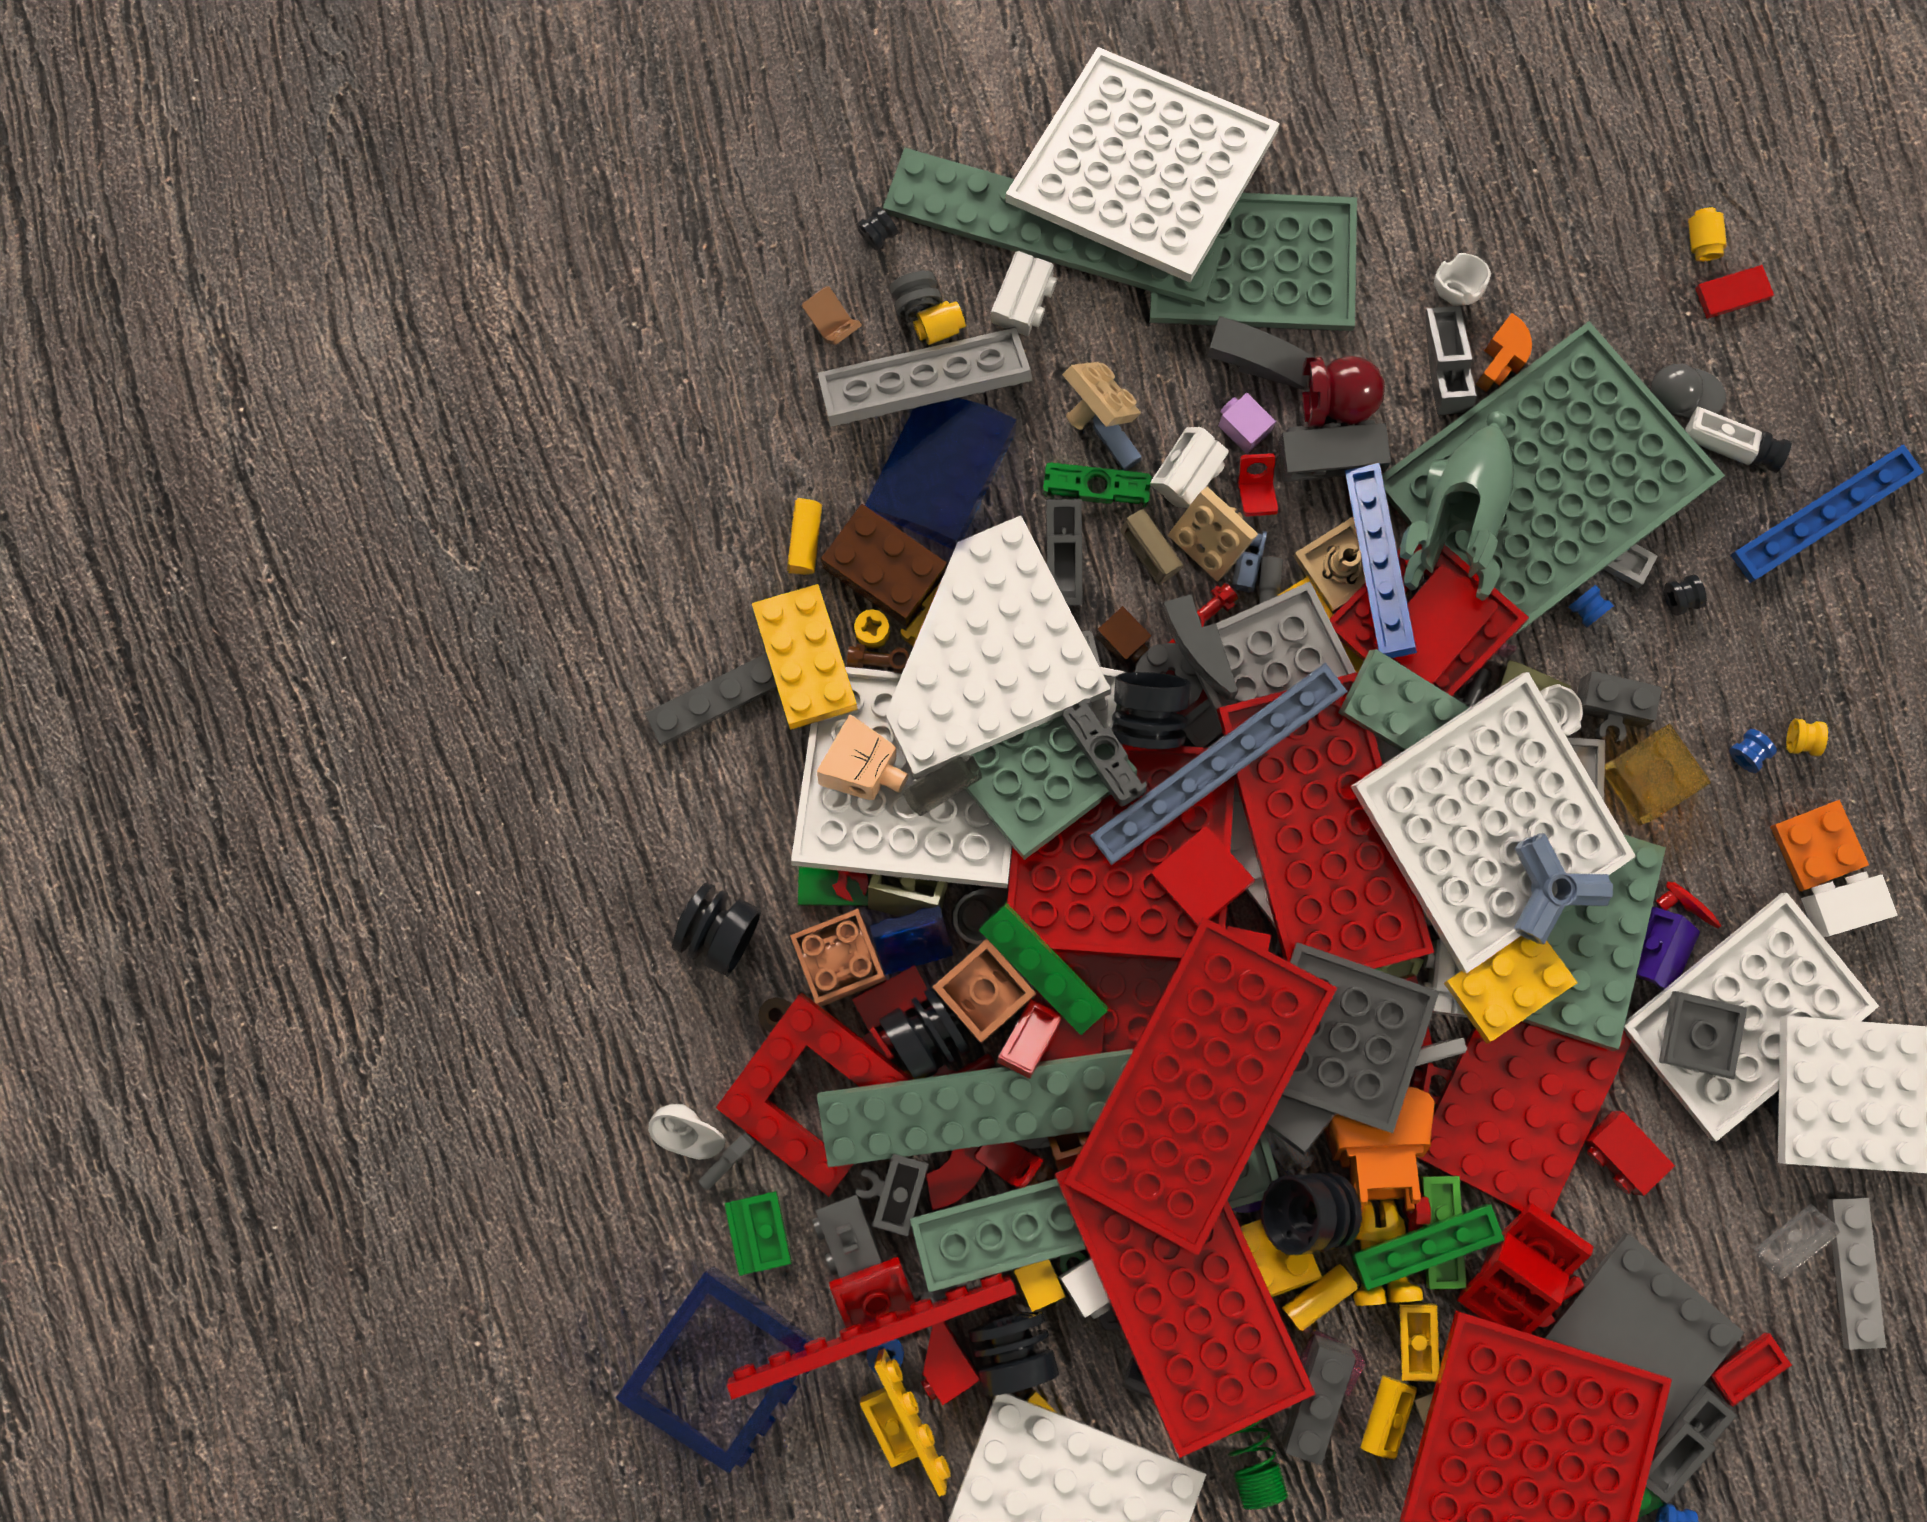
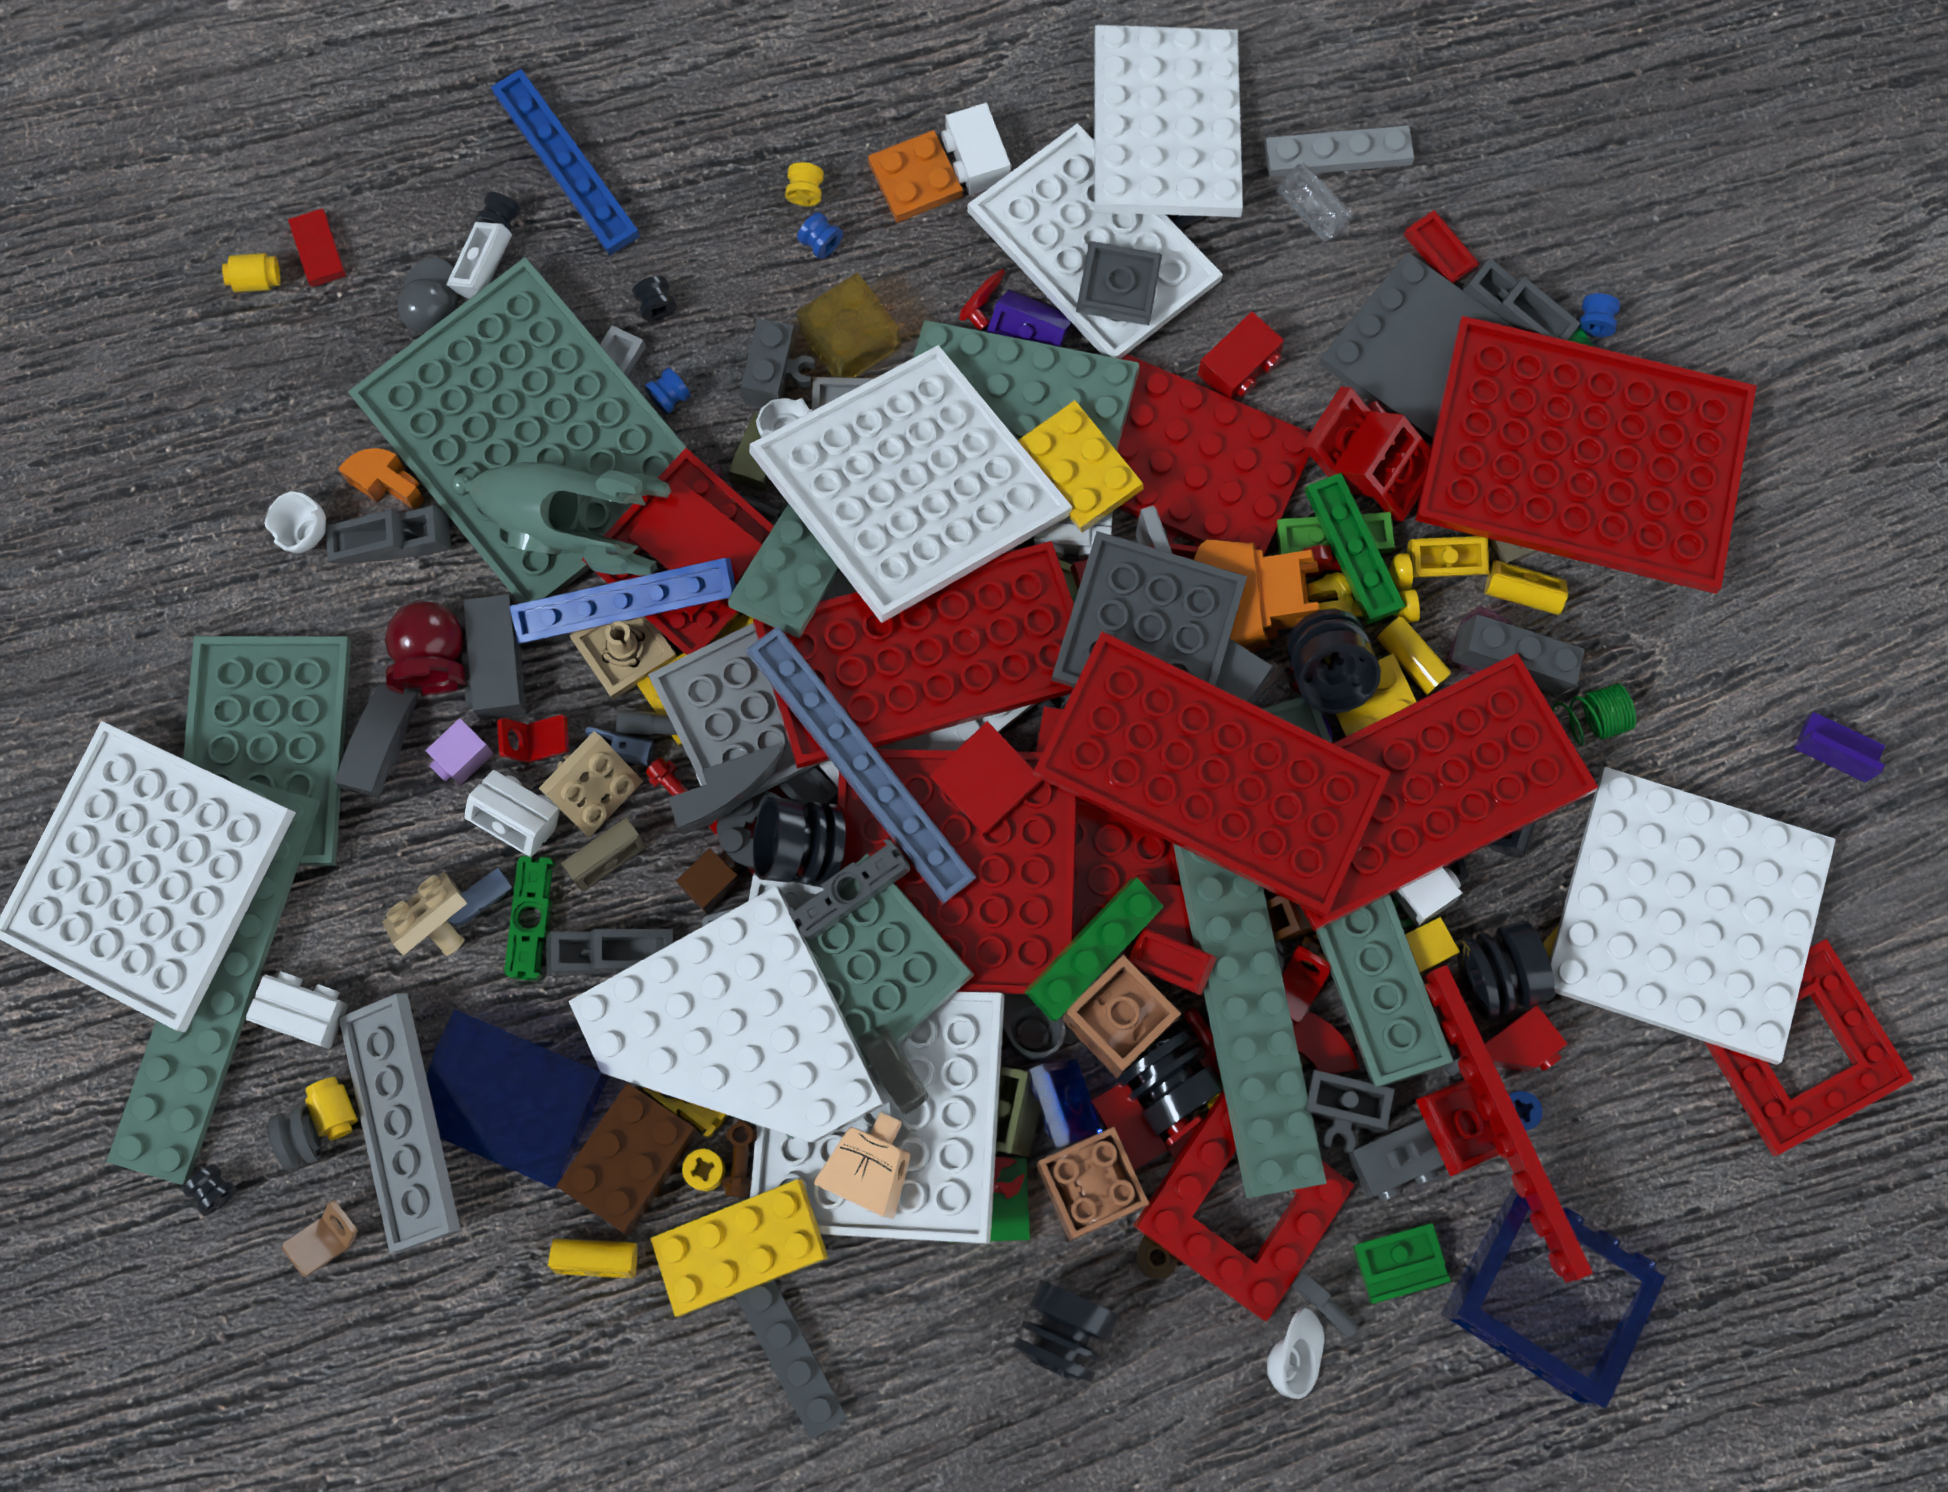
camera: 95 degrees left, 5 degrees down
(897, 1425) = (1594, 1092): yellow bracket -> none
(1573, 889) = (965, 427): sand blue piece -> none

